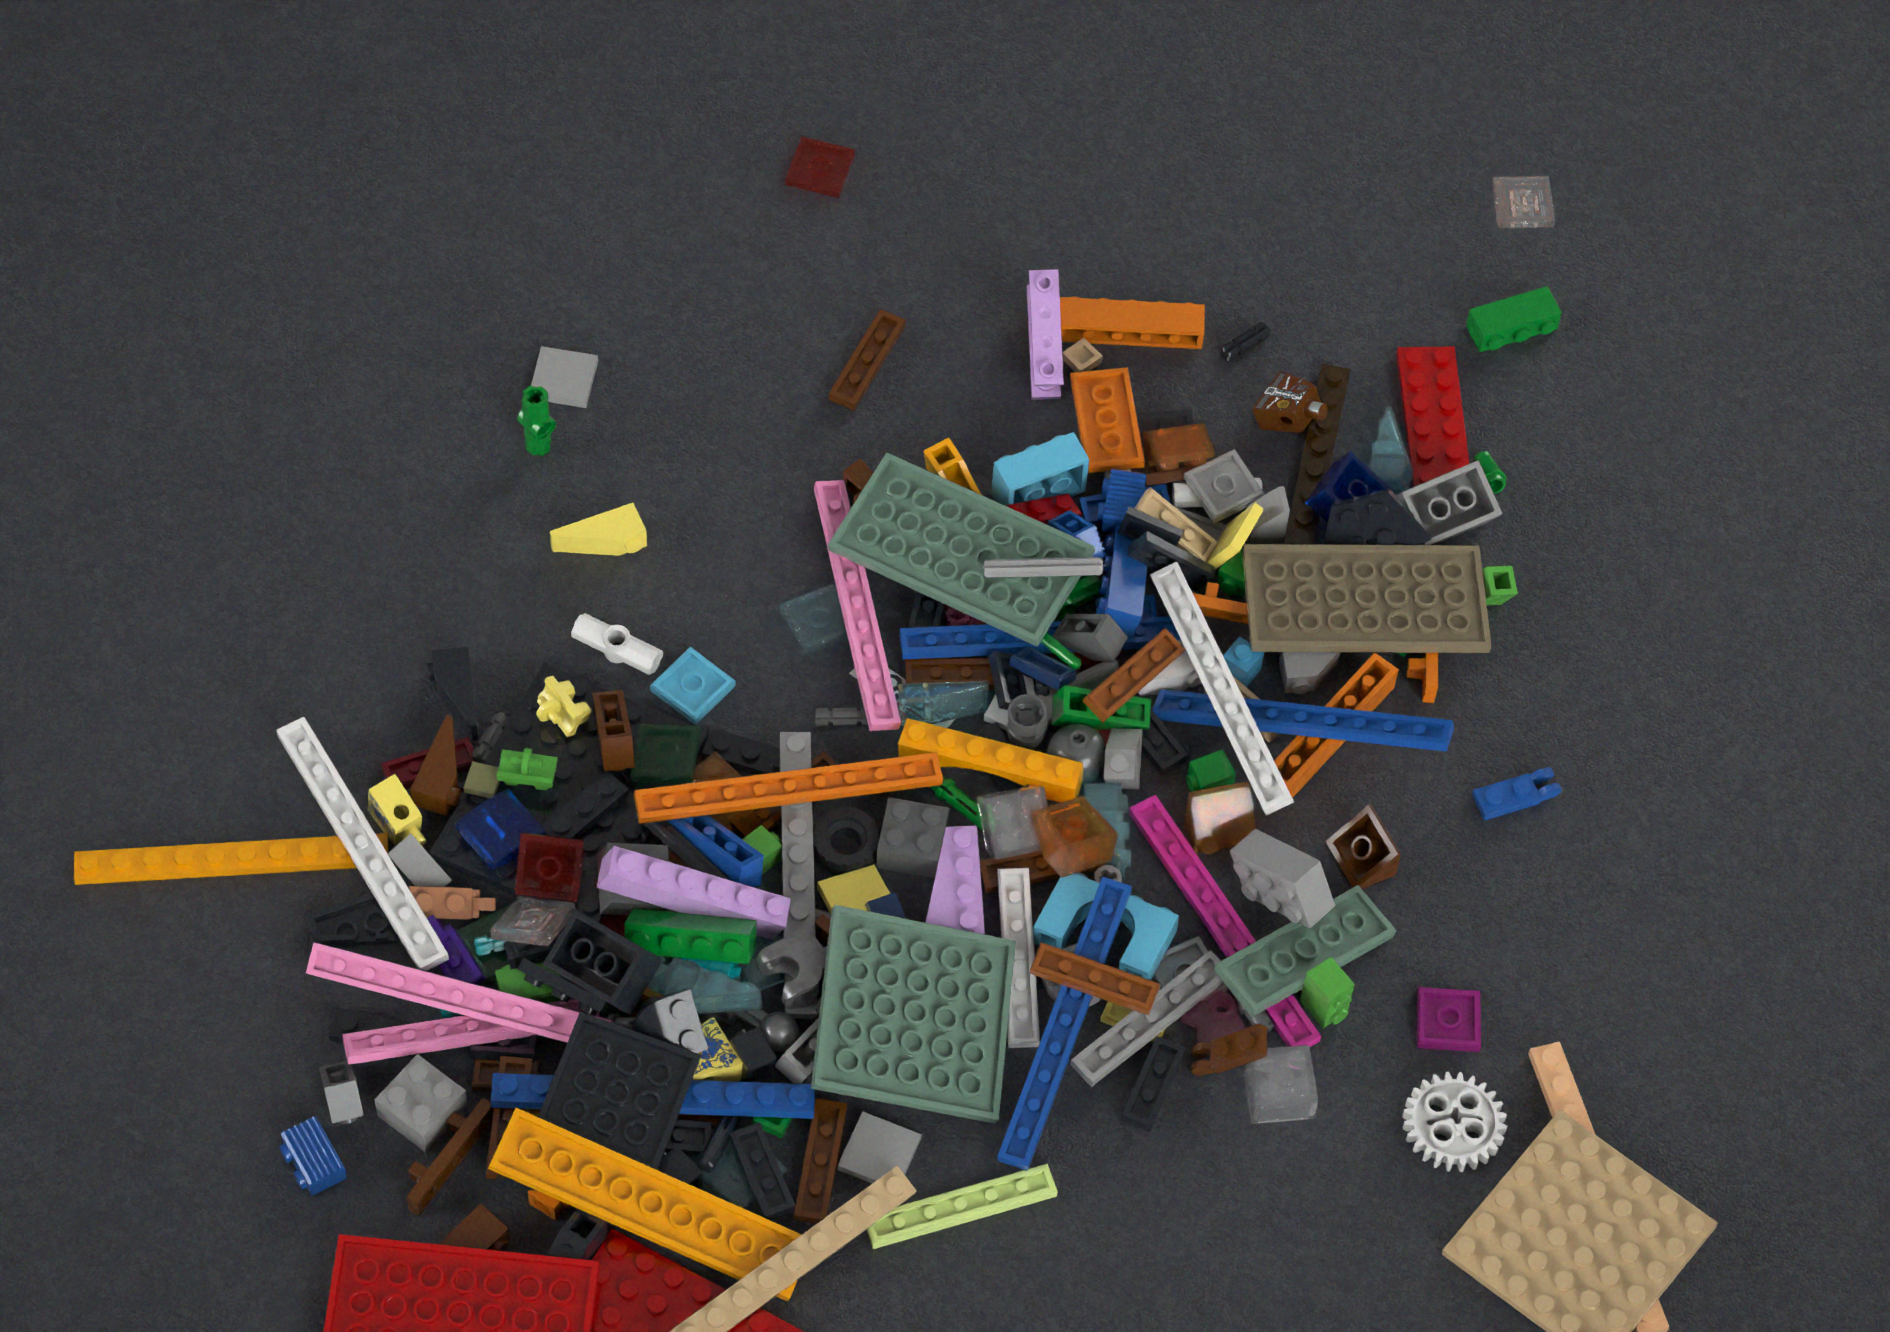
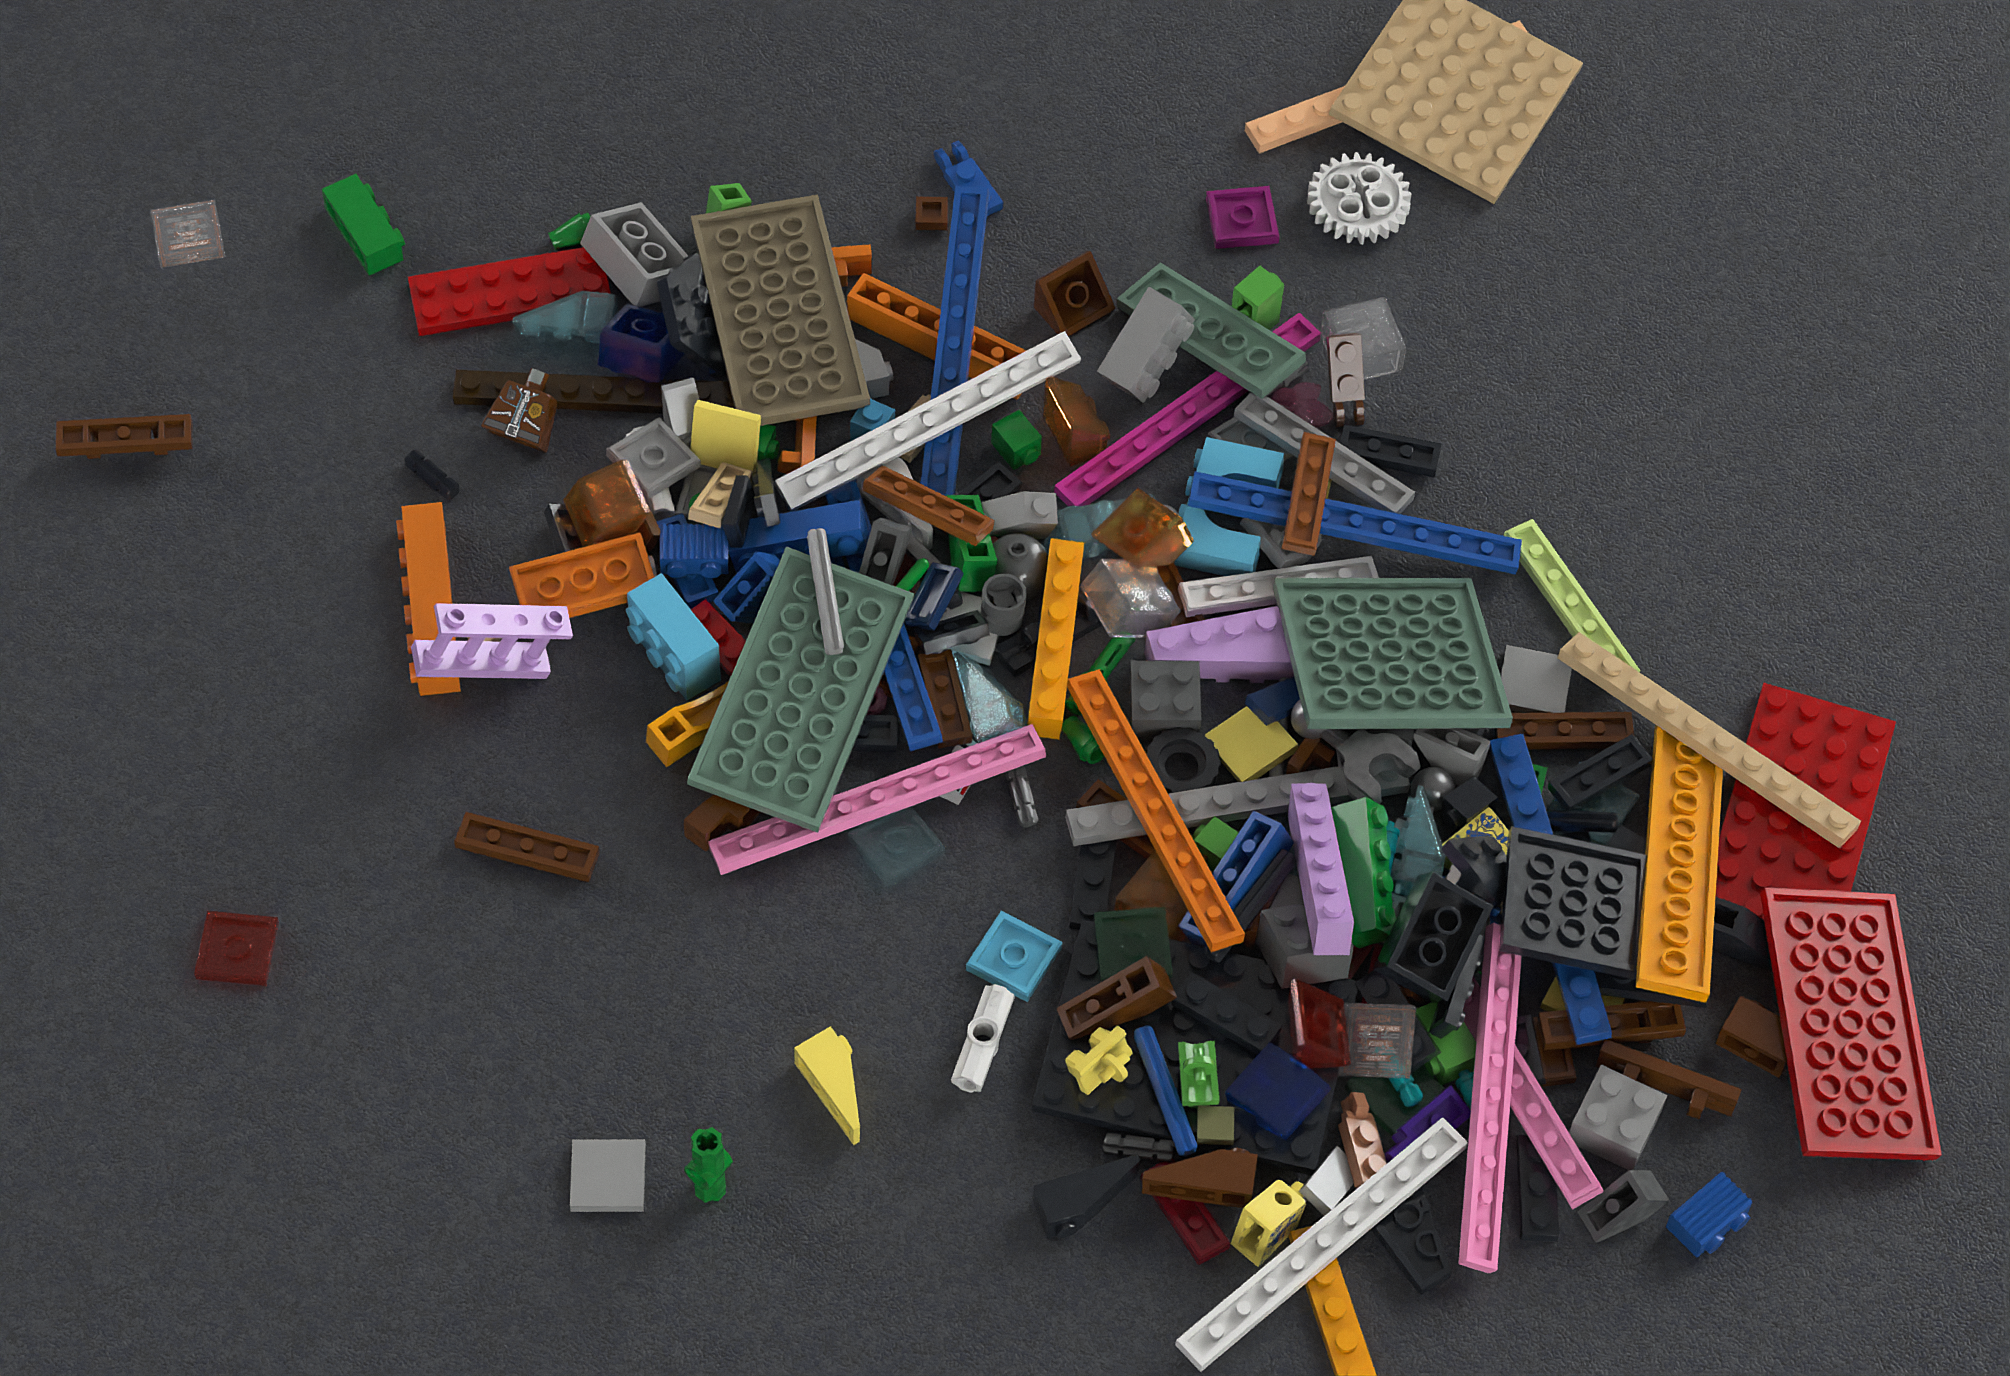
camera: 100 degrees left, 0 degrees up
(547, 747) = (1165, 1090): none -> blue axle
(1309, 131) = (124, 435): none -> reddish brown hinge
(1478, 754) = (931, 213): none -> reddish brown plate

